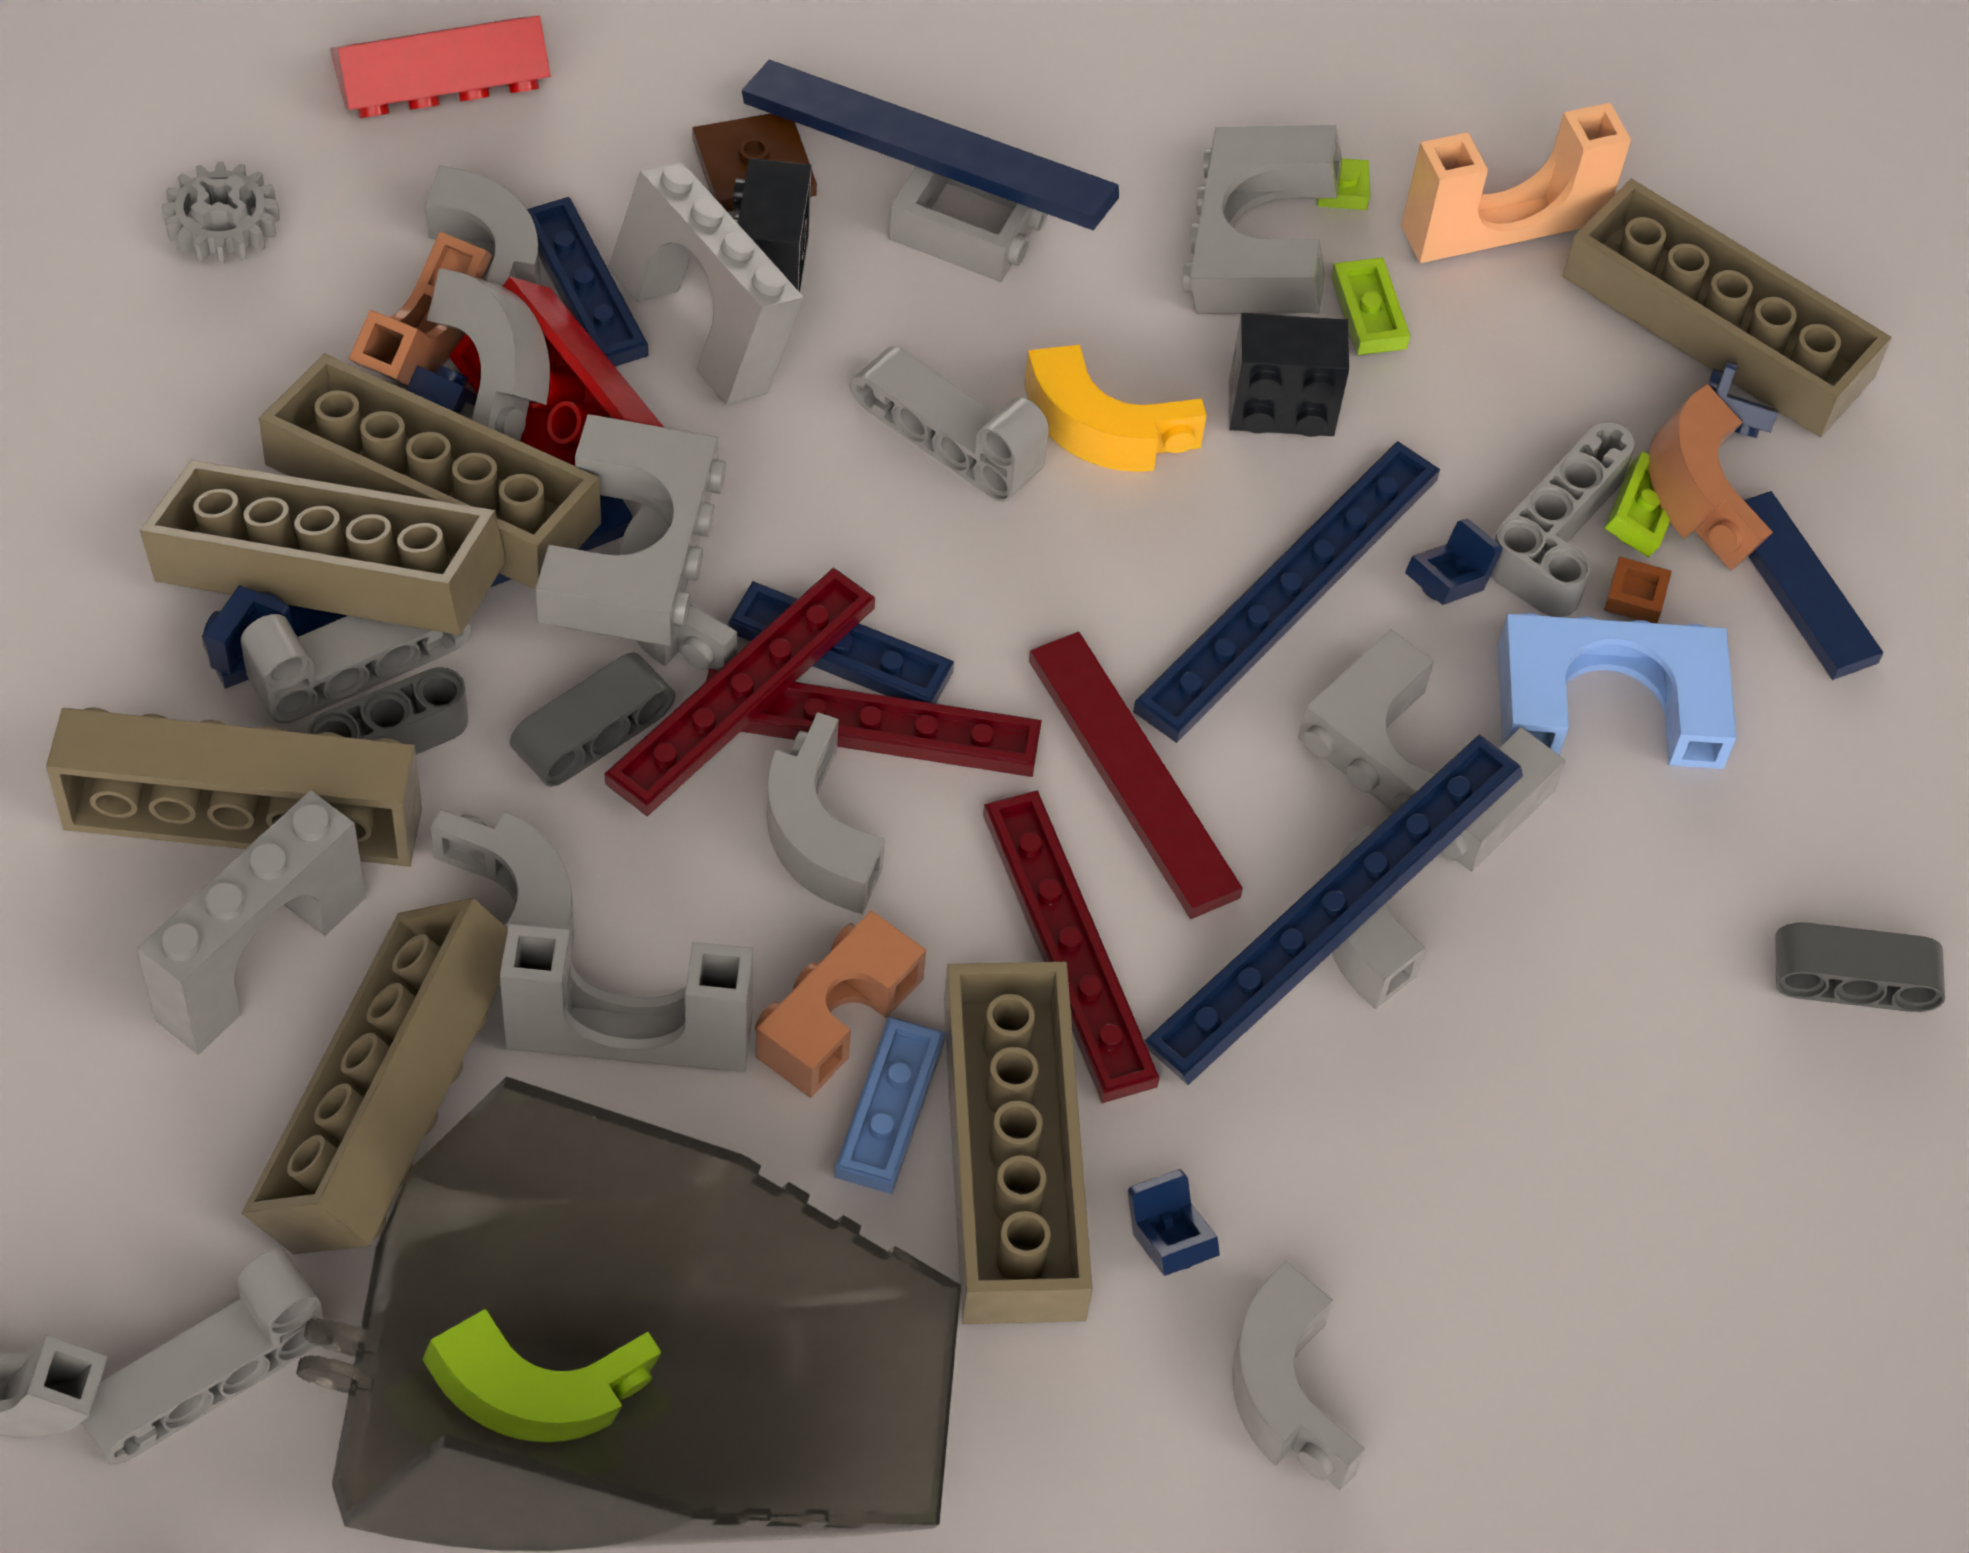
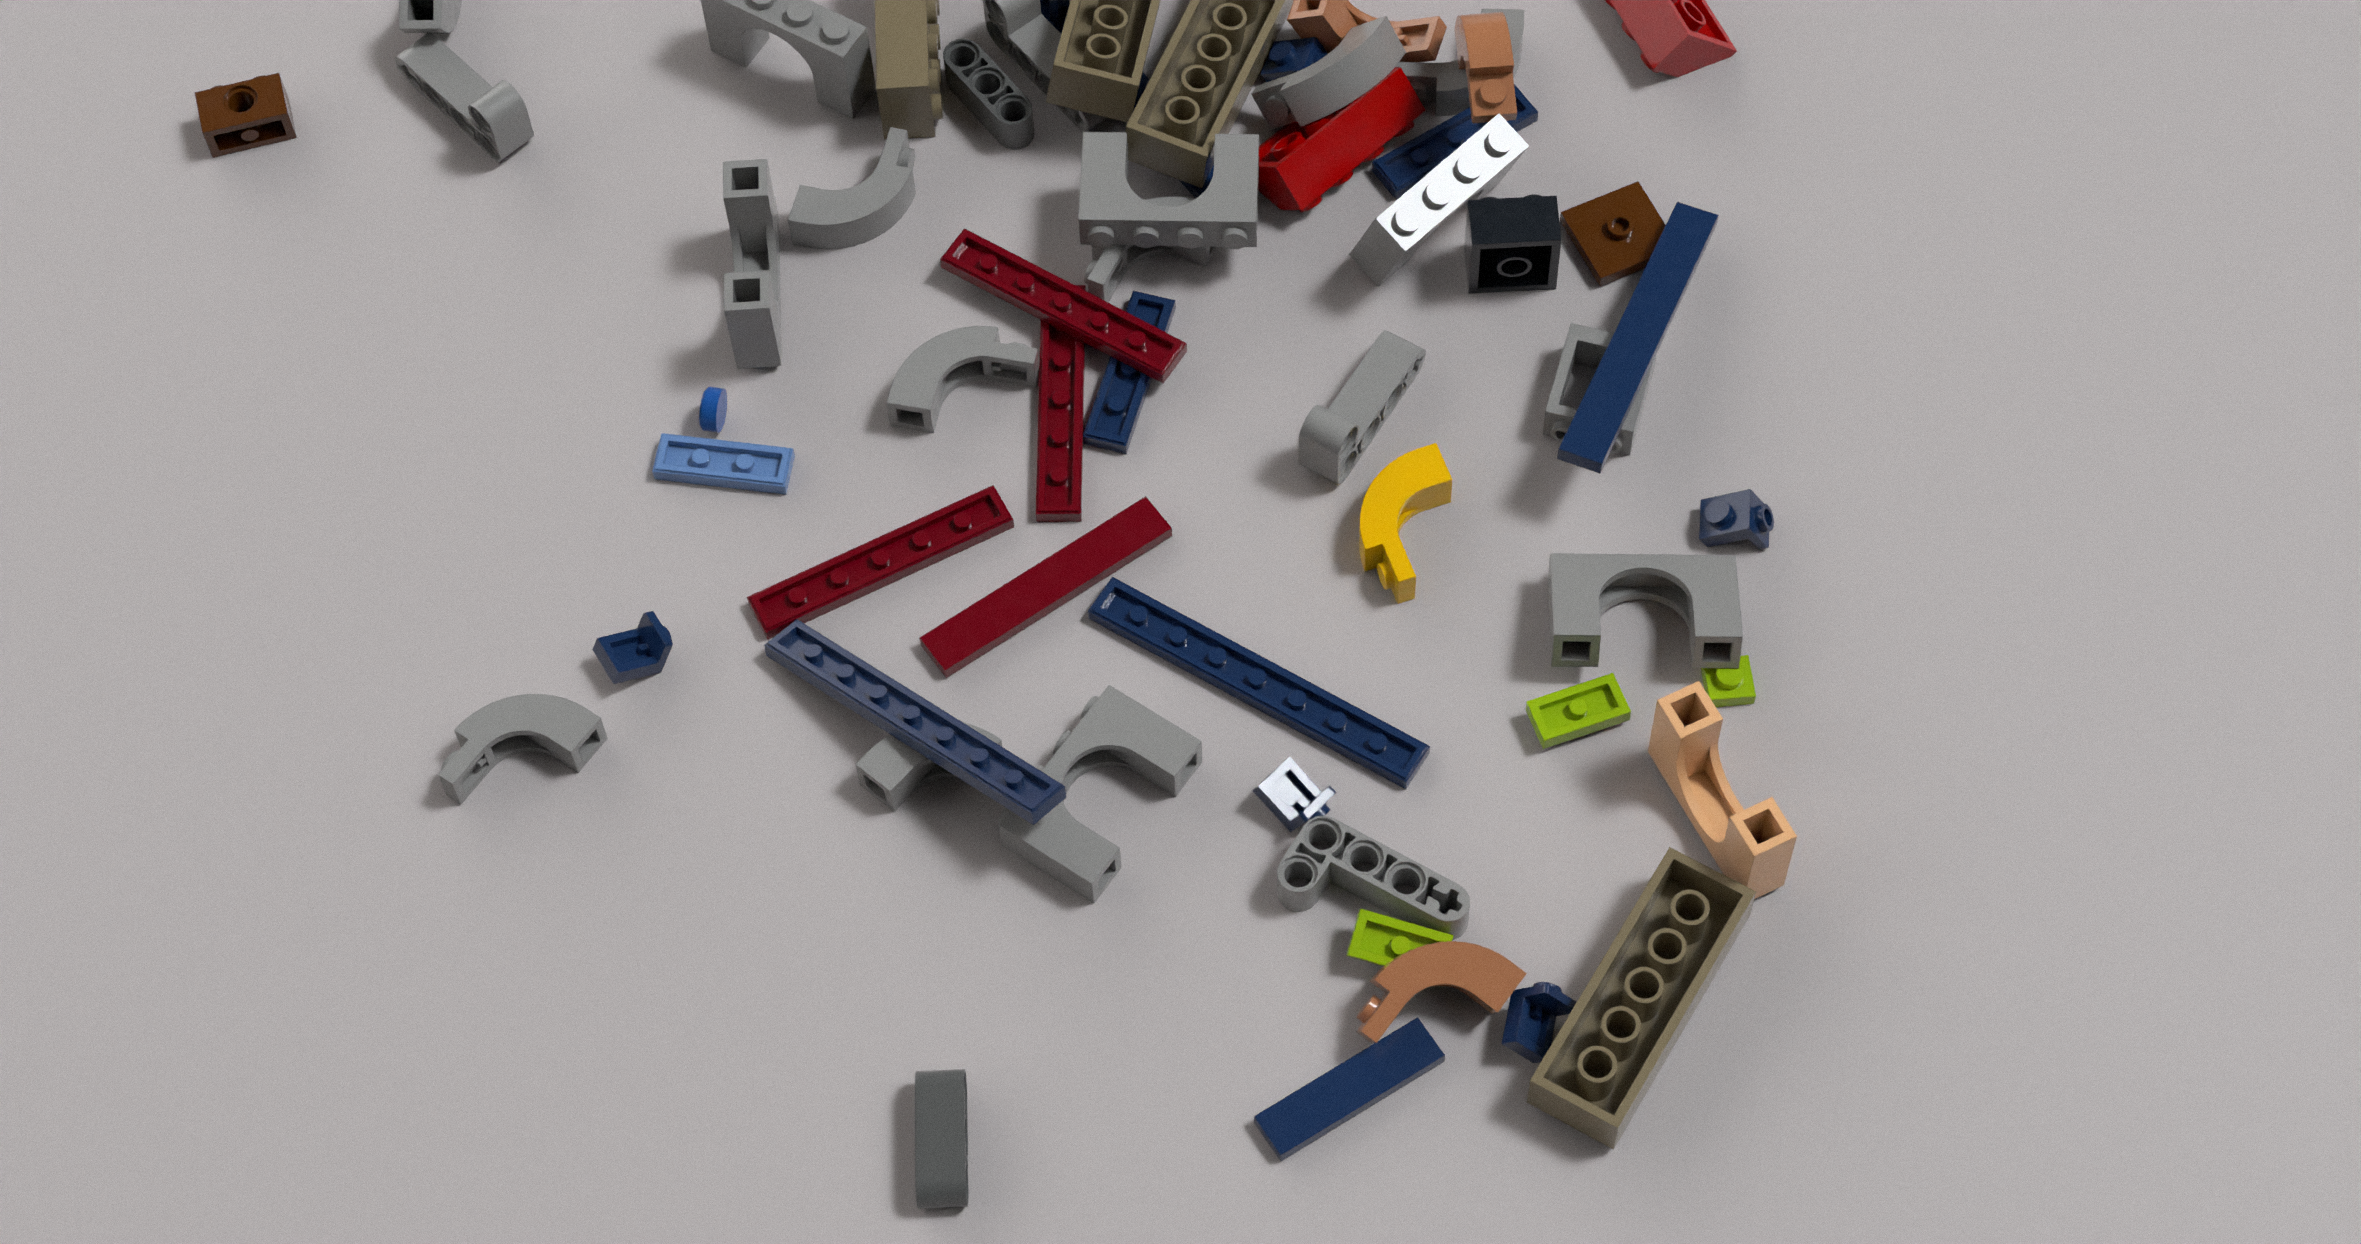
camera: 90 degrees right, 5 degrees up
(381, 1080) = (672, 137): dark tan brick -> none
(527, 1401) = (444, 257): lime arch -> none
(541, 165) = (1487, 56): none -> nougat arch
(592, 719) = (1020, 217): dark grey beam -> none
(790, 1378) = (441, 317): clear smoke windscreen -> none
(816, 1097) = (713, 409): none -> blue tile
(865, 966) = (767, 392): nougat arch -> none
(1016, 1144) = (684, 534): dark tan brick -> none
(1153, 133) = (1734, 519): none -> dark blue bracket
(1288, 374) = (1456, 638): black brick -> none
(1637, 590) = (1305, 947): dark orange plate -> none
(1678, 663) = (1222, 988): light blue arch -> none

